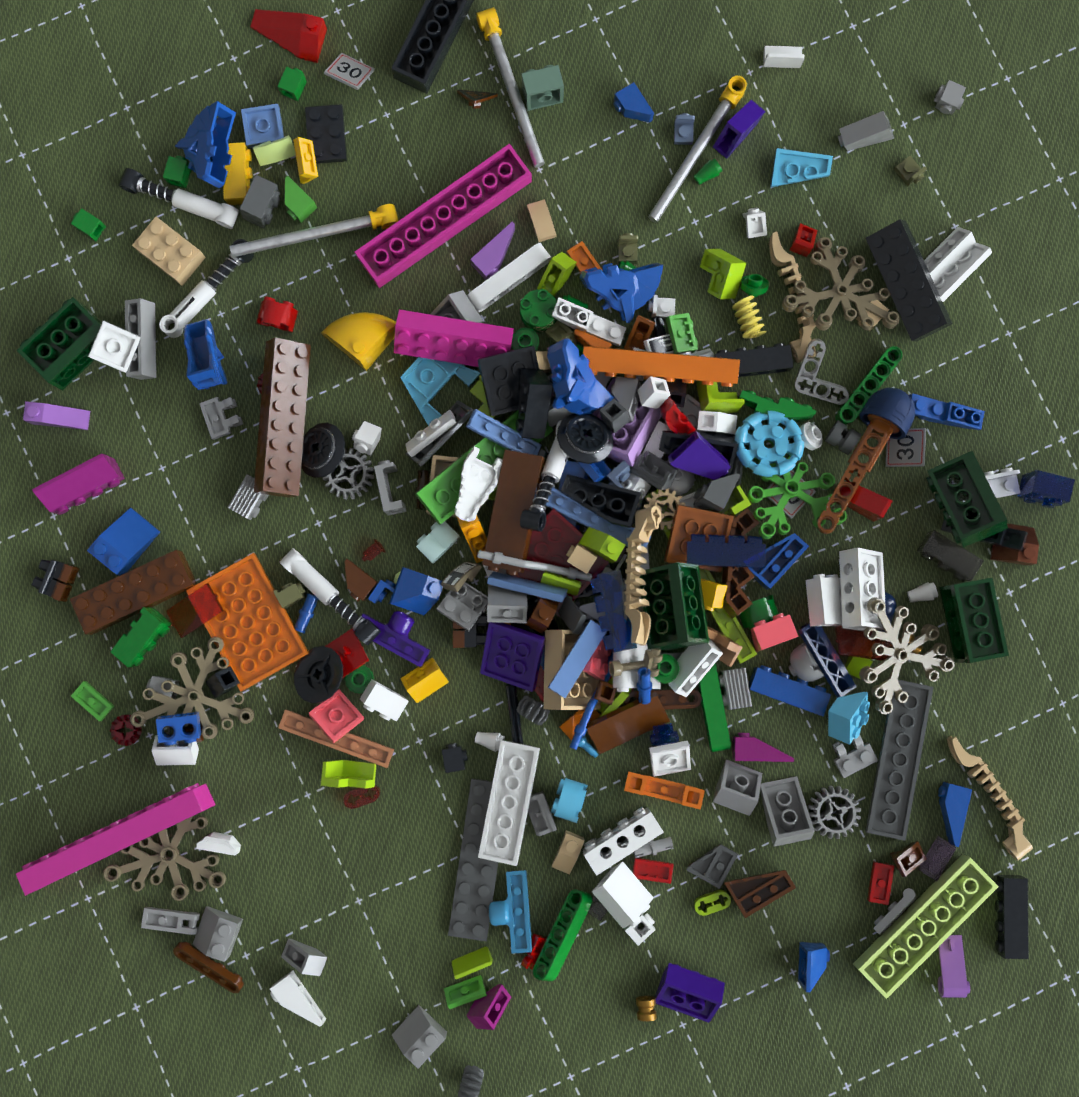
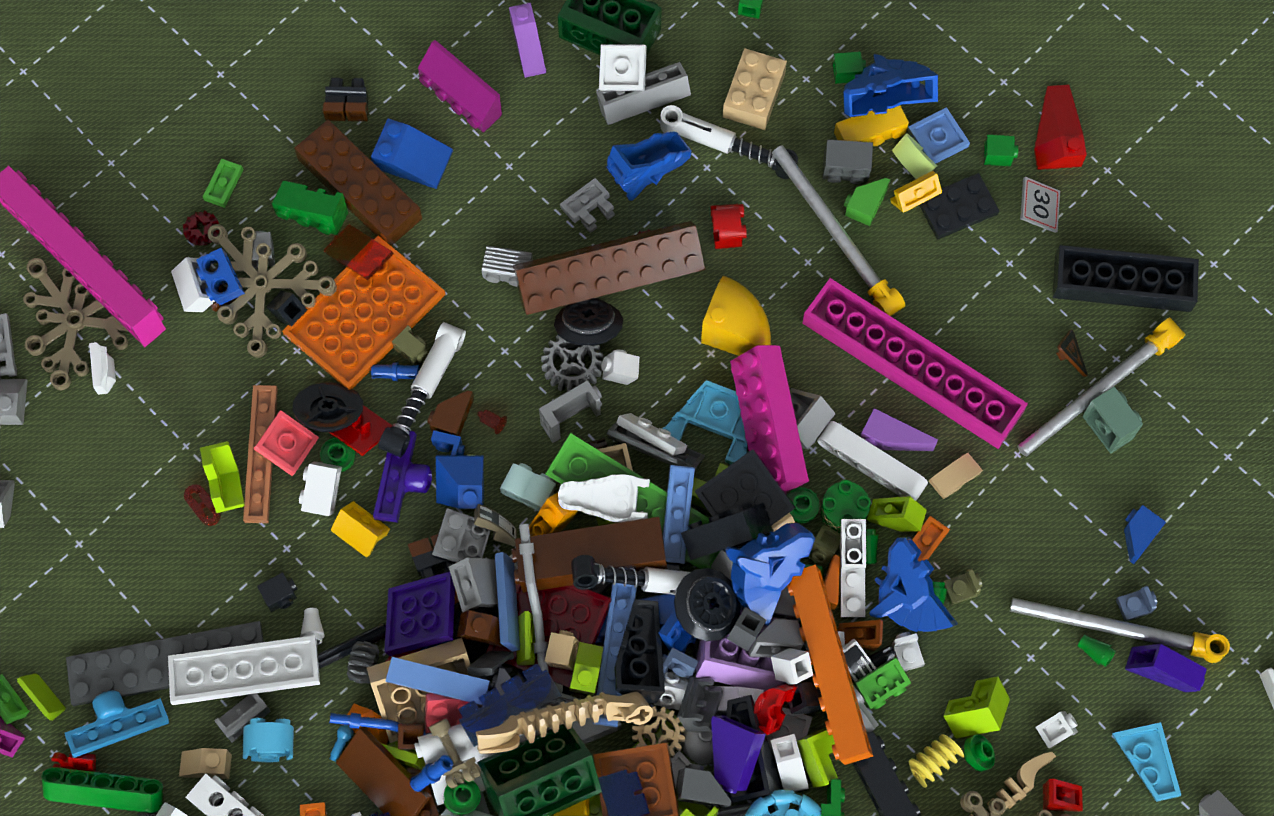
camera: 70 degrees right, 15 degrees down
(220, 213) = (818, 82): piece -> none

